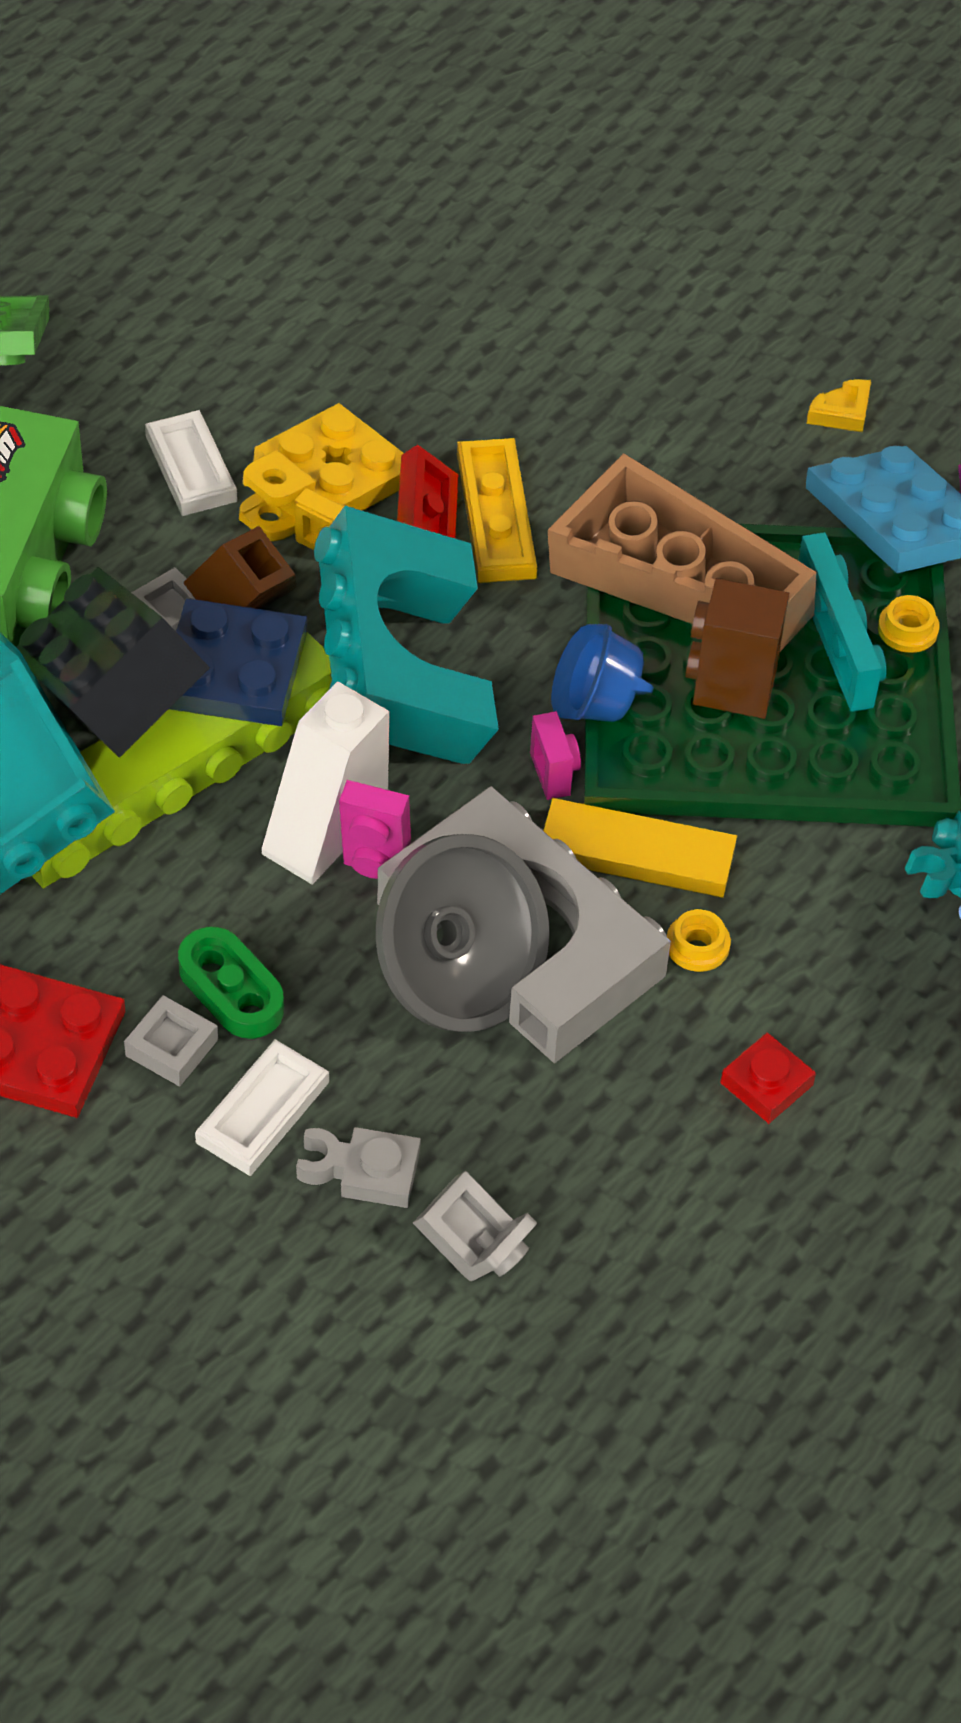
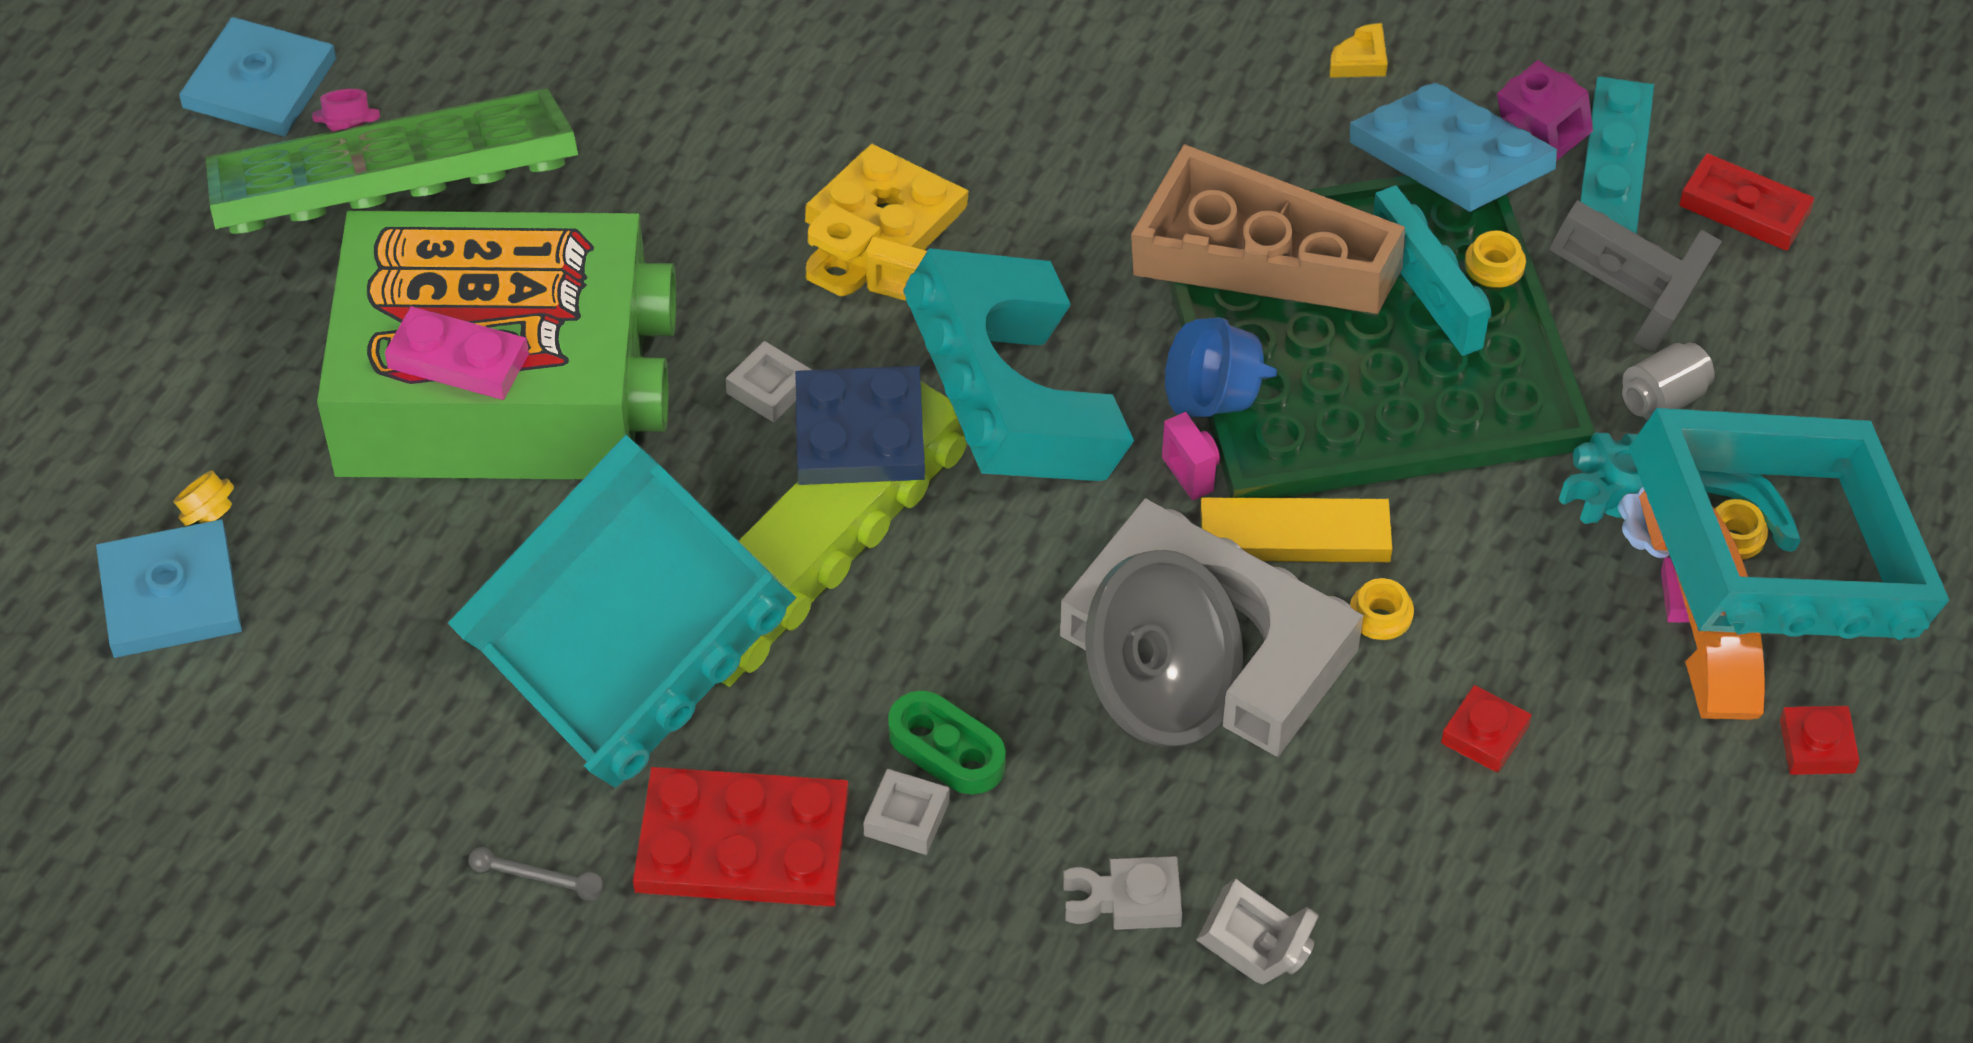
camera: 10 degrees left, 0 degrees up
(110, 660) = (745, 447): black piece -> none
(191, 463) = (742, 231): white tile -> none
(243, 573) = (840, 334): reddish brown slope -> none
(262, 1107) = (1013, 858): white tile -> none
(333, 743) = (989, 527): white slope -> none
(372, 826) = (1046, 563): dark pink plate -> none
(427, 493) = (988, 218): red plate -> none
(496, 510) = (1057, 220): yellow tile -> none
(738, 647) = (1348, 314): reddish brown brick -> none

